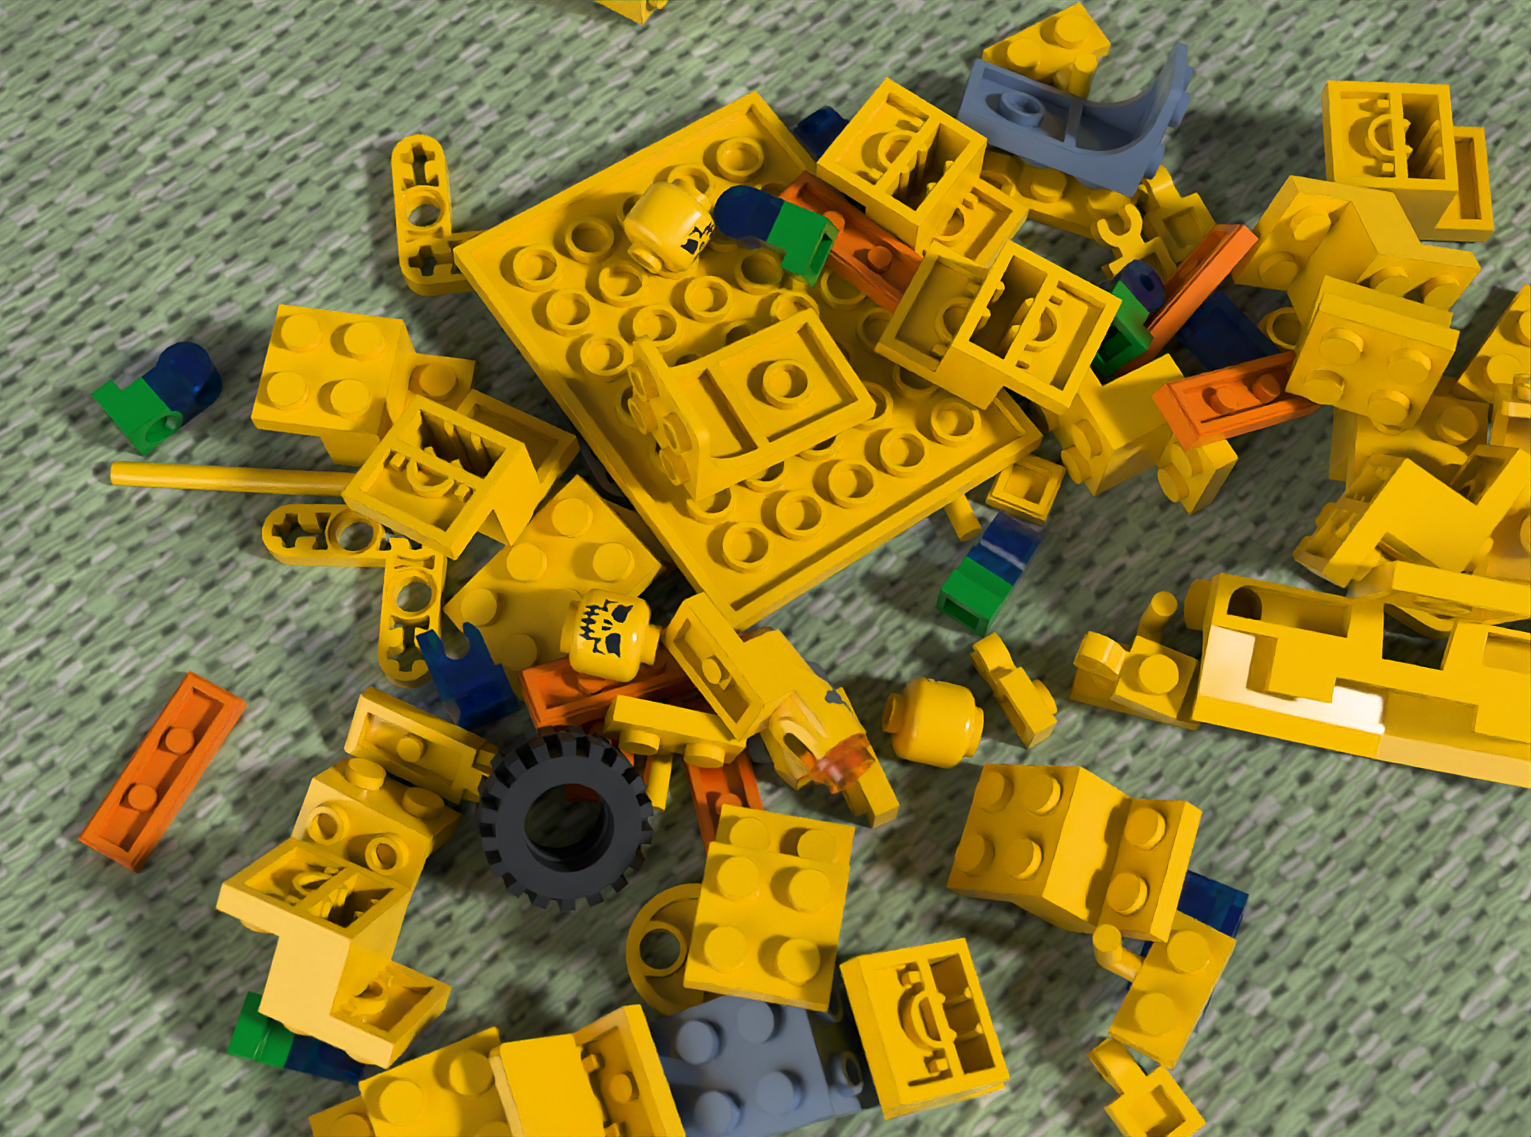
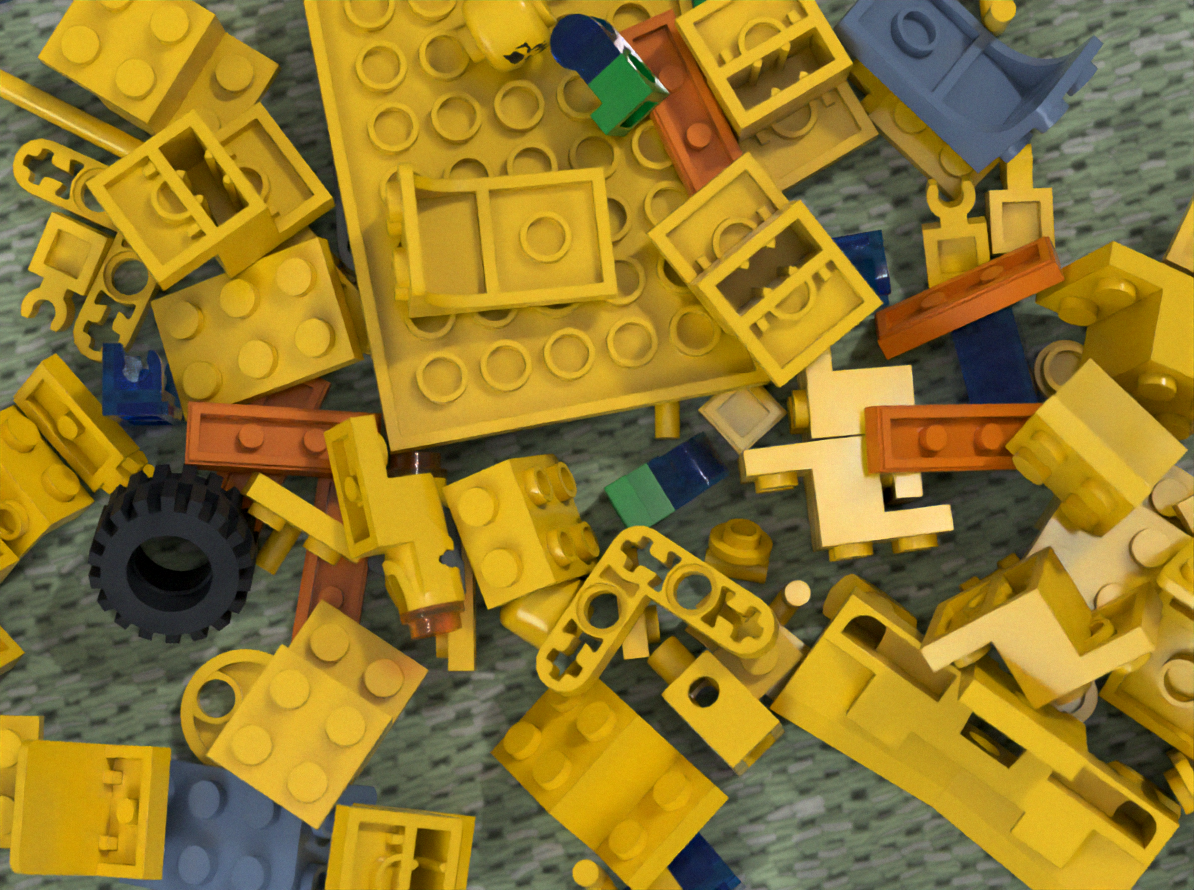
camera: 25 degrees right, 15 degrees up
(348, 603) = (69, 263): none -> yellow plate
(610, 635) = (279, 410): yellow head -> none
(878, 655) = (521, 527): none -> yellow bracket
(1020, 657) = (635, 592): none -> yellow beam
(1084, 605) = (739, 550): none -> yellow plate
(1127, 337) = (906, 285): green leg -> none
(1159, 504) = (843, 498): none -> yellow bracket
(1164, 745) = (733, 726): none -> yellow torso

